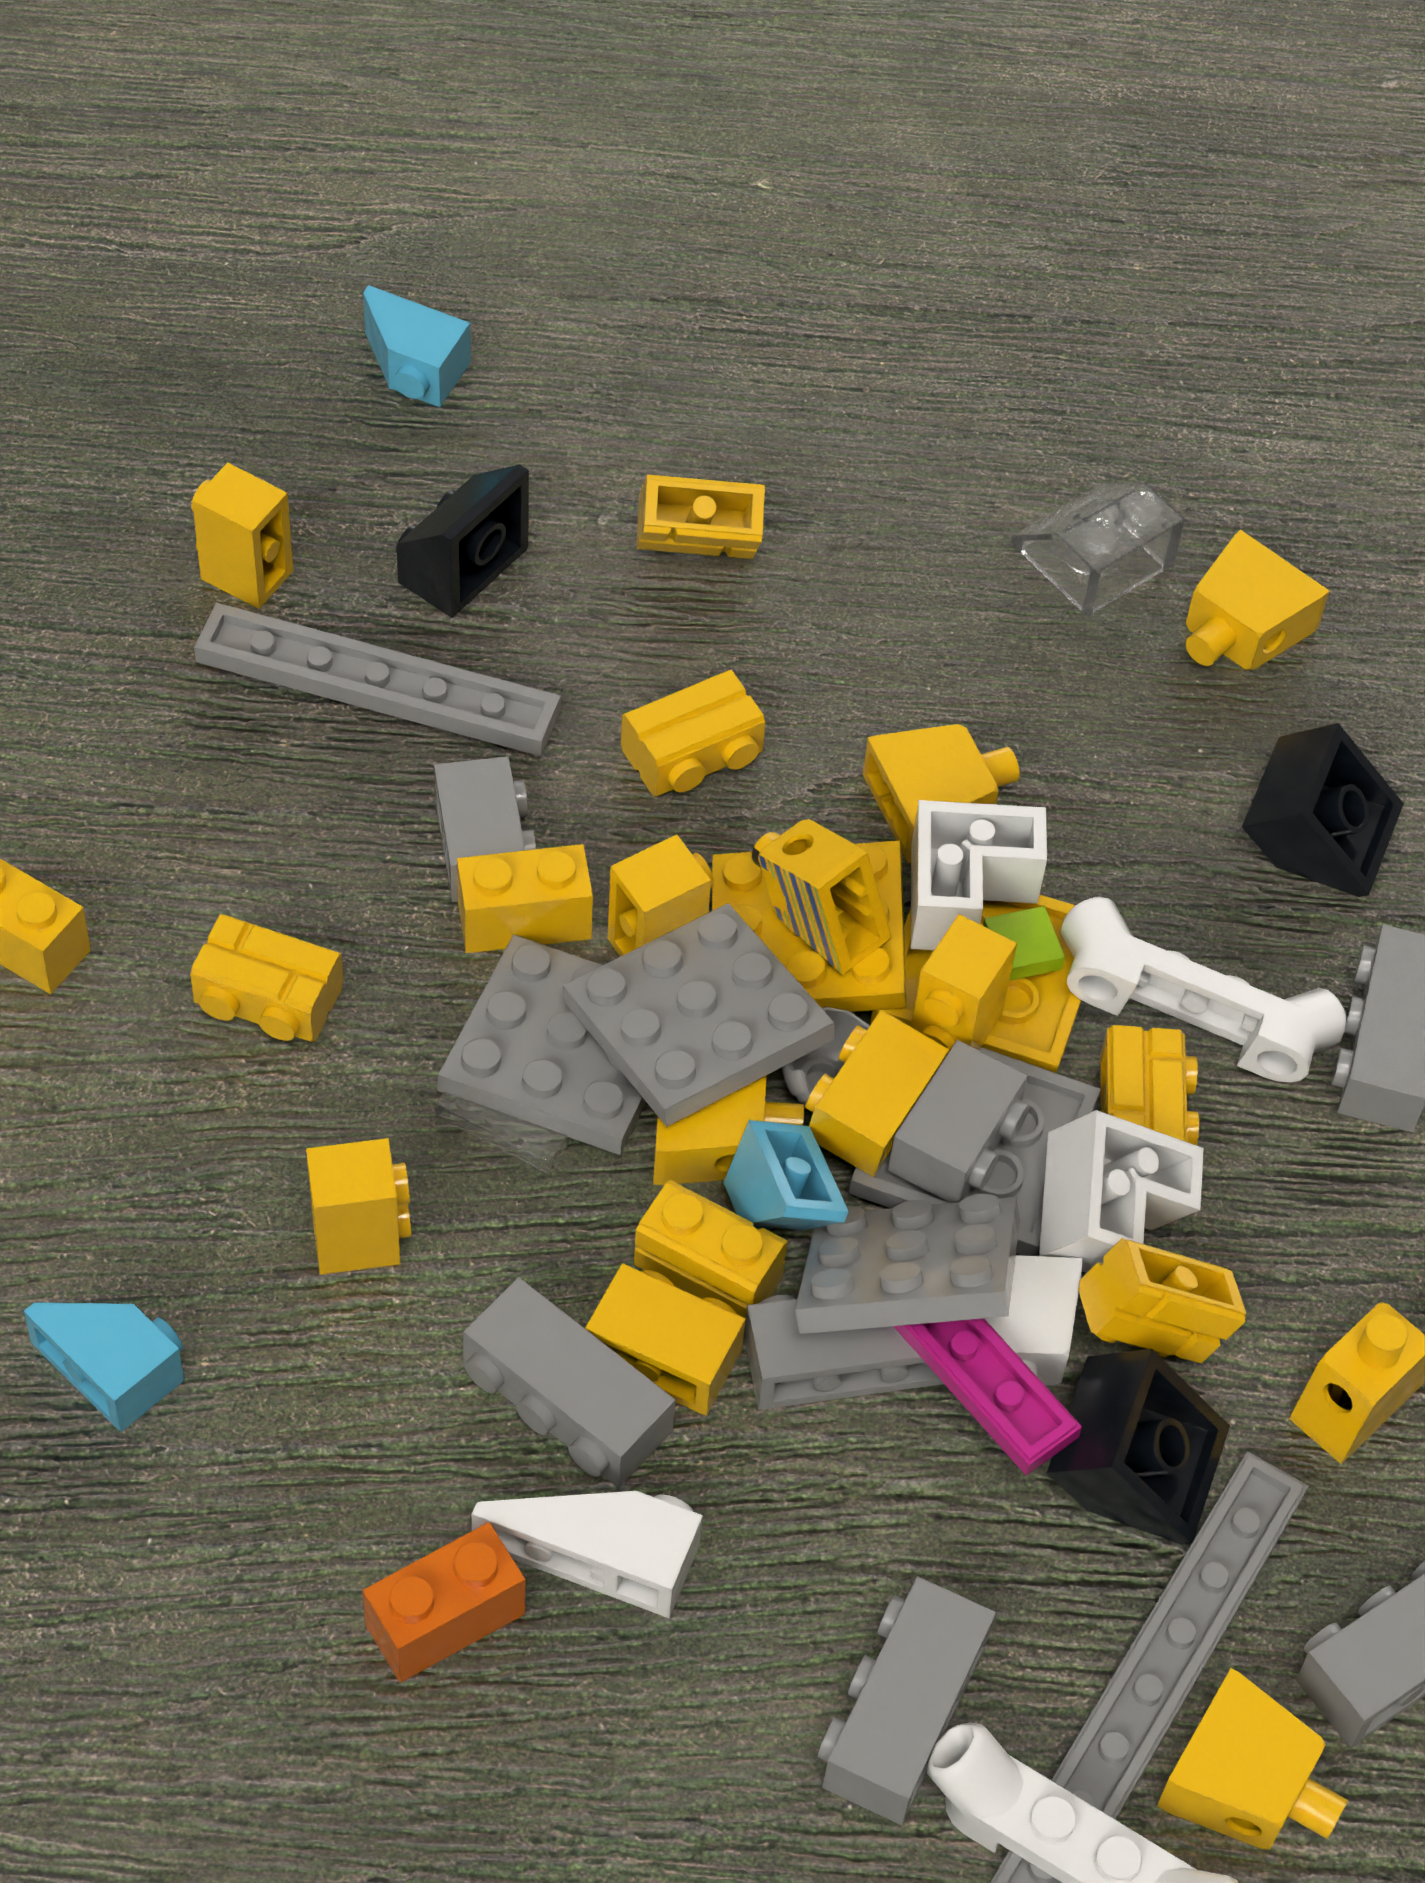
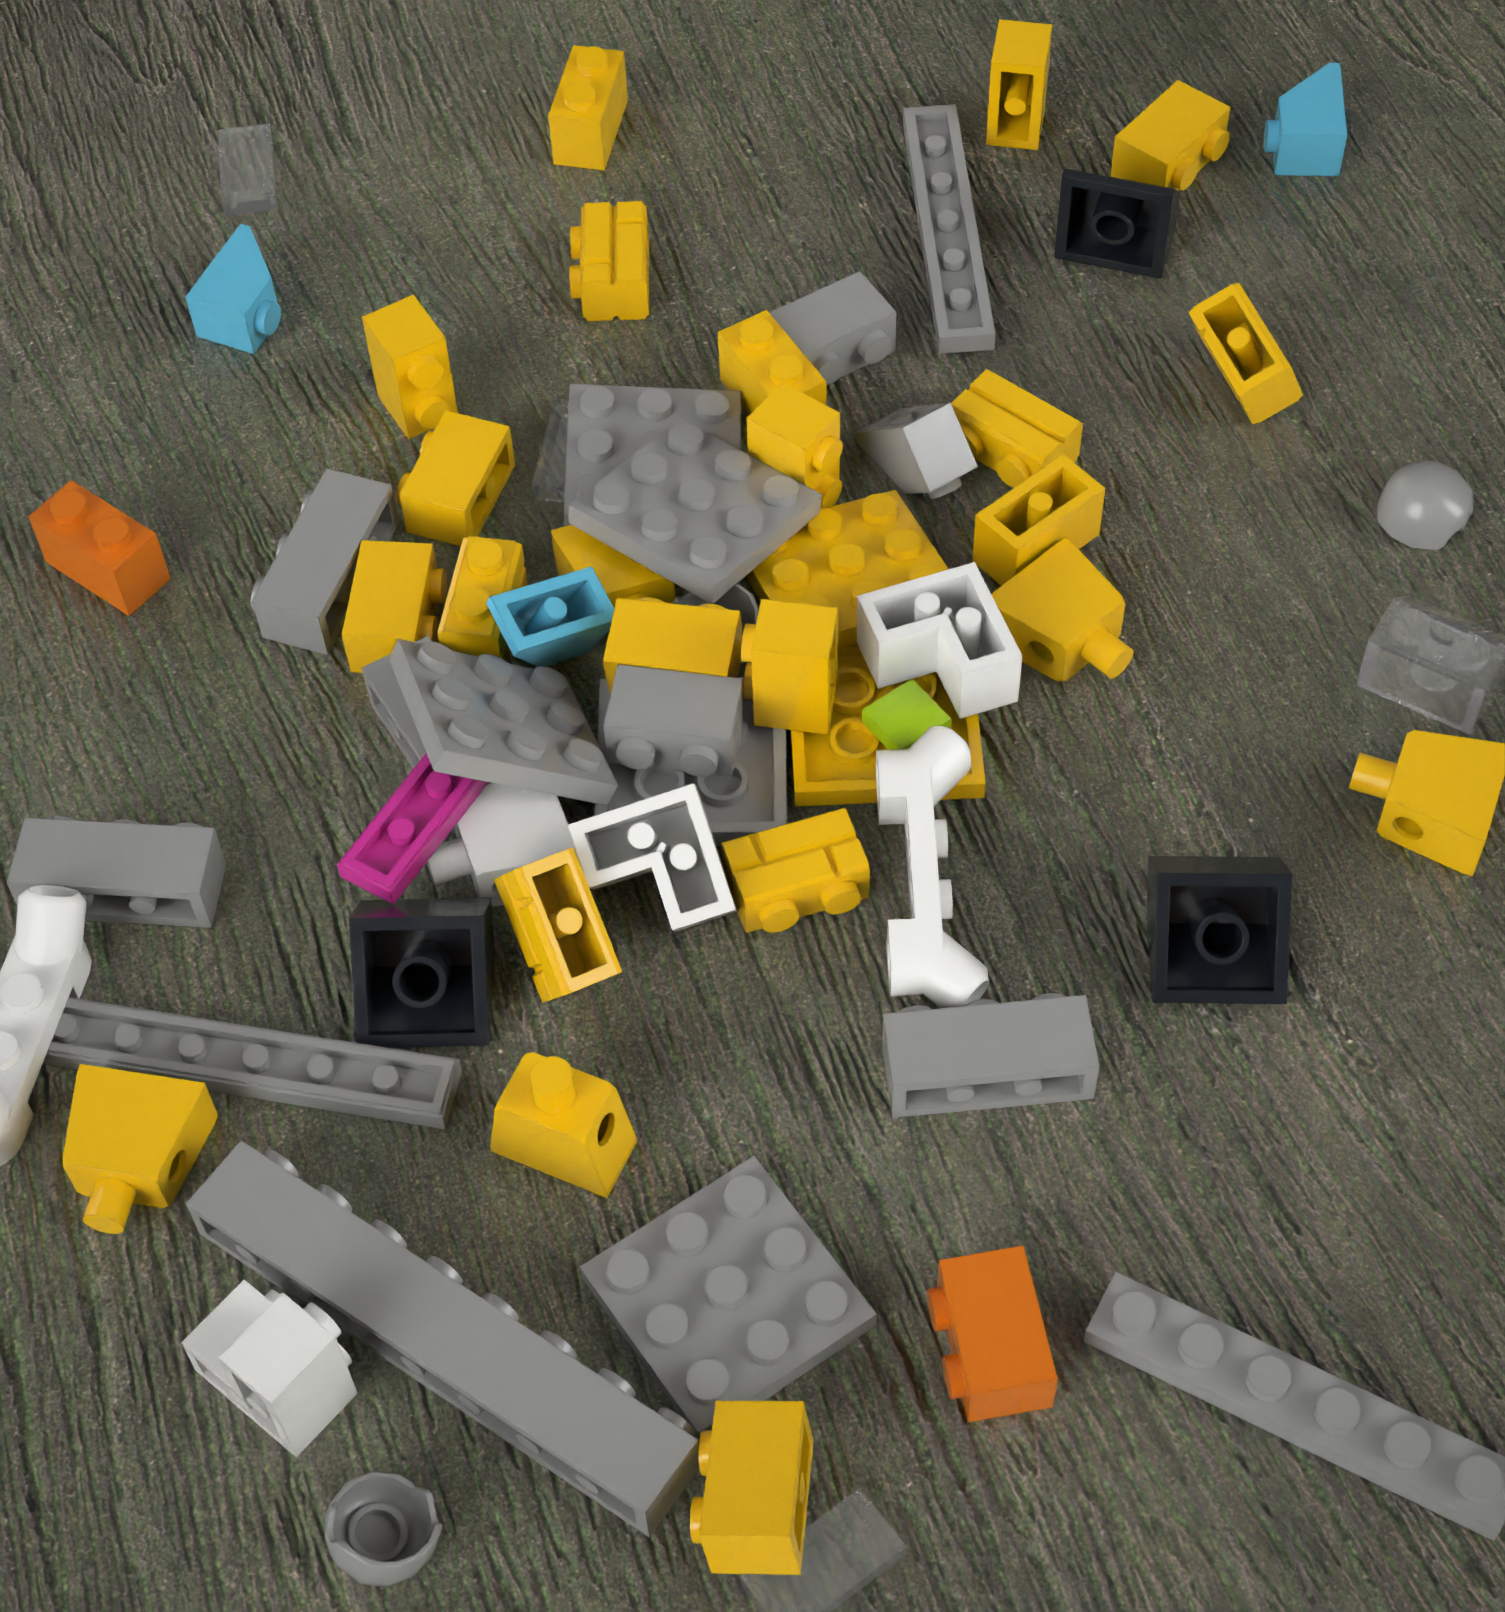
camera: 75 degrees right, 0 degrees up
(374, 459) = (1172, 139): none -> yellow brick
(511, 1222) = (456, 478): none -> yellow brick
(604, 1541) = (189, 640): white slope -> none
(679, 799) = (920, 448): none -> light grey slope
(824, 892) = (844, 520): yellow torso -> none
(833, 754) = (1036, 516): none -> yellow brick
(921, 477) = (1425, 504): none -> light grey hair

